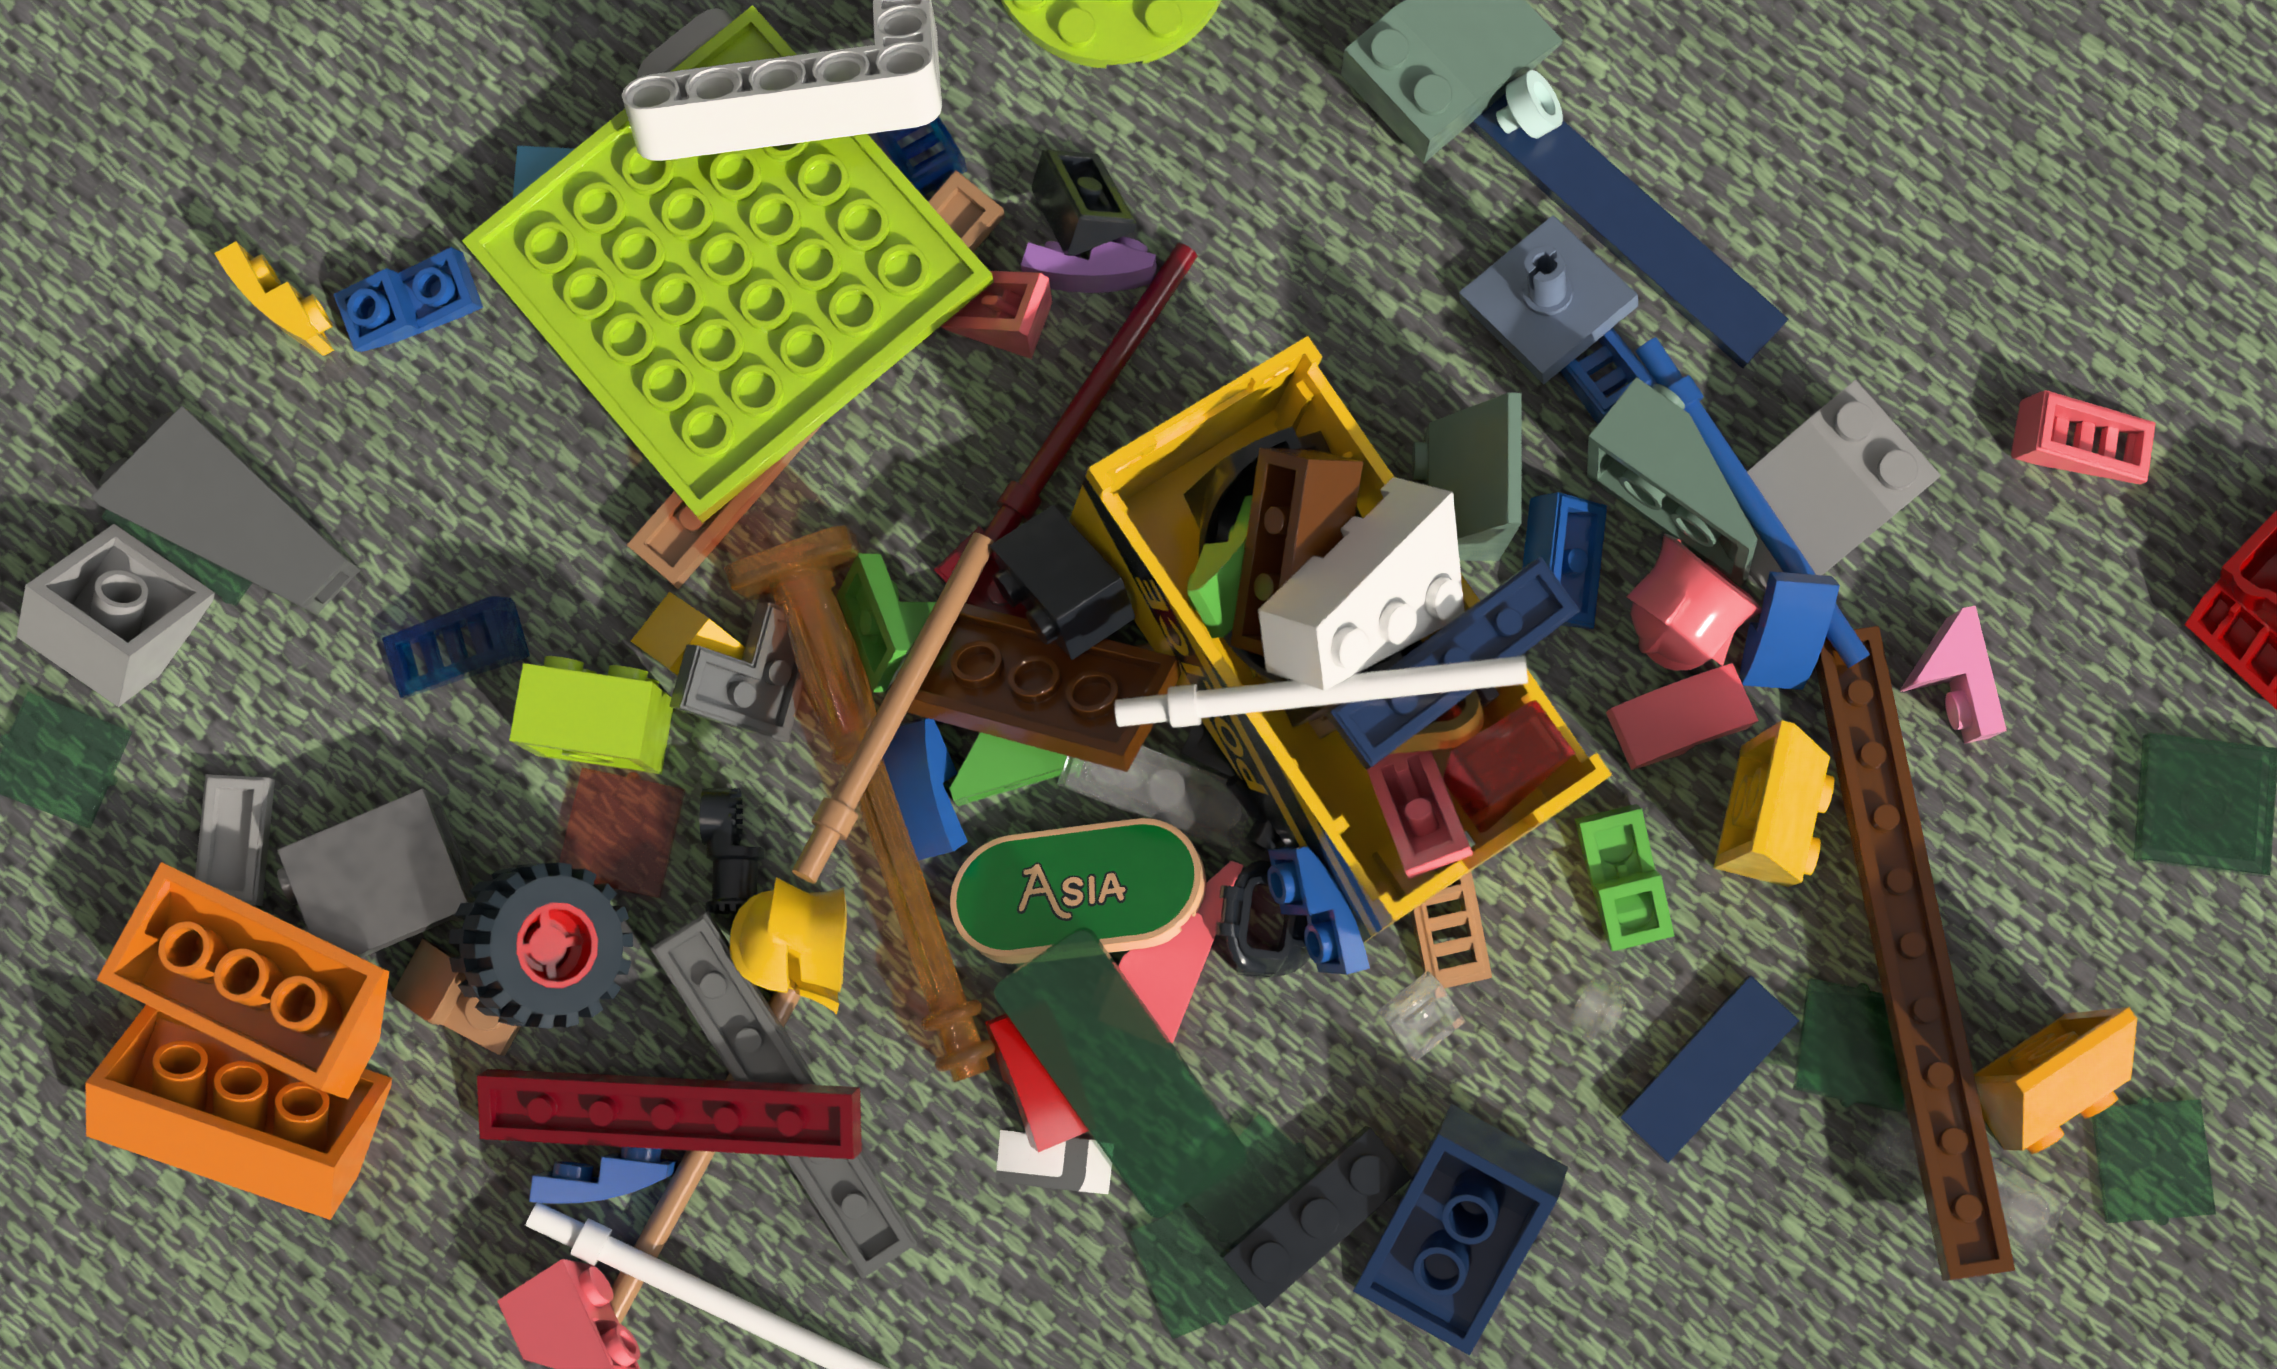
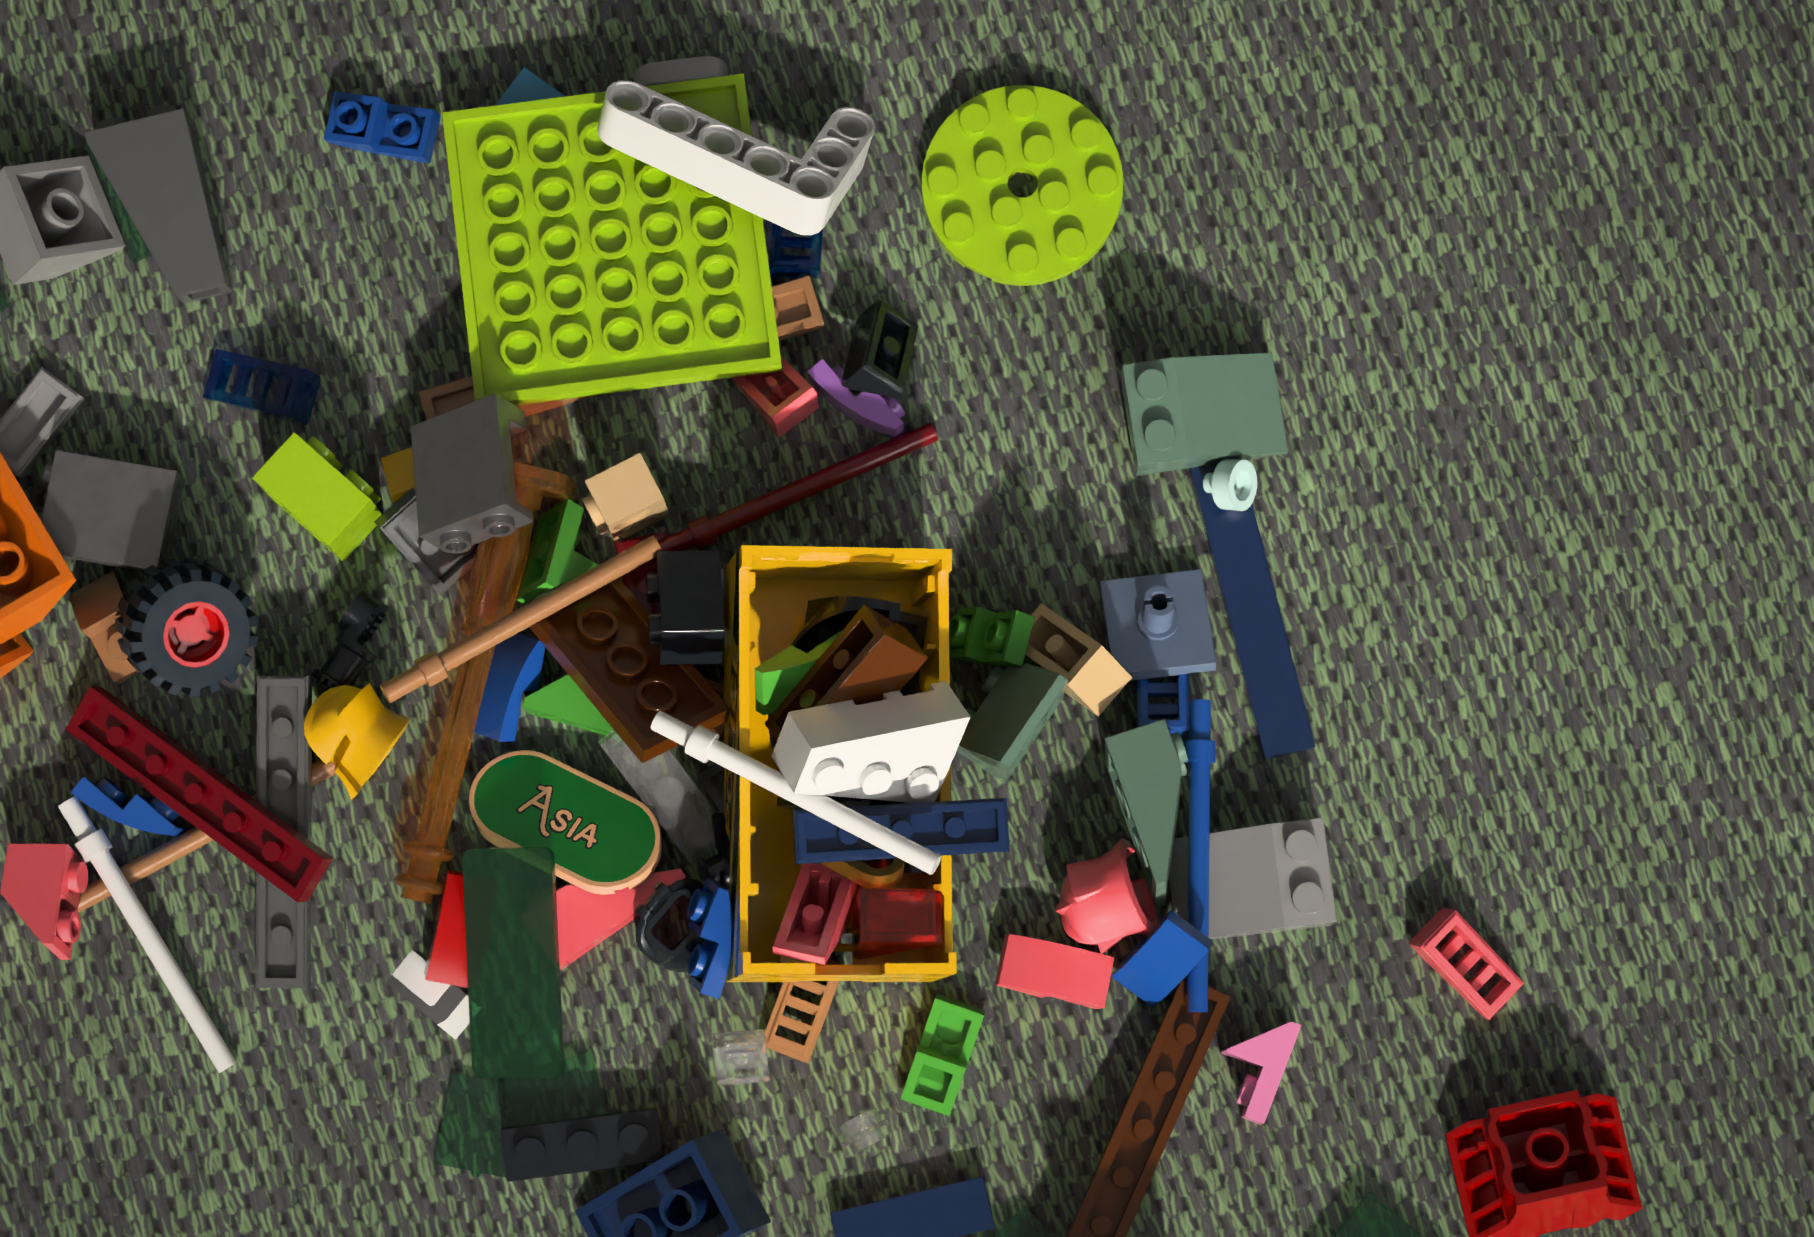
camera: 30 degrees right, 0 degrees up
(292, 312) = (295, 81): yellow slope -> none
(623, 830) = (291, 584): clear red piece -> none
(739, 591) = (468, 474): none -> flat silver panel
(919, 514) = (625, 499): none -> tan brick
(1400, 409) = (989, 636): none -> bright green slope
(1473, 373) = (1064, 649): none -> tan brick
(1570, 541) = (1050, 811): blue slope -> none
(1775, 807) = (1073, 1075): yellow slope -> none

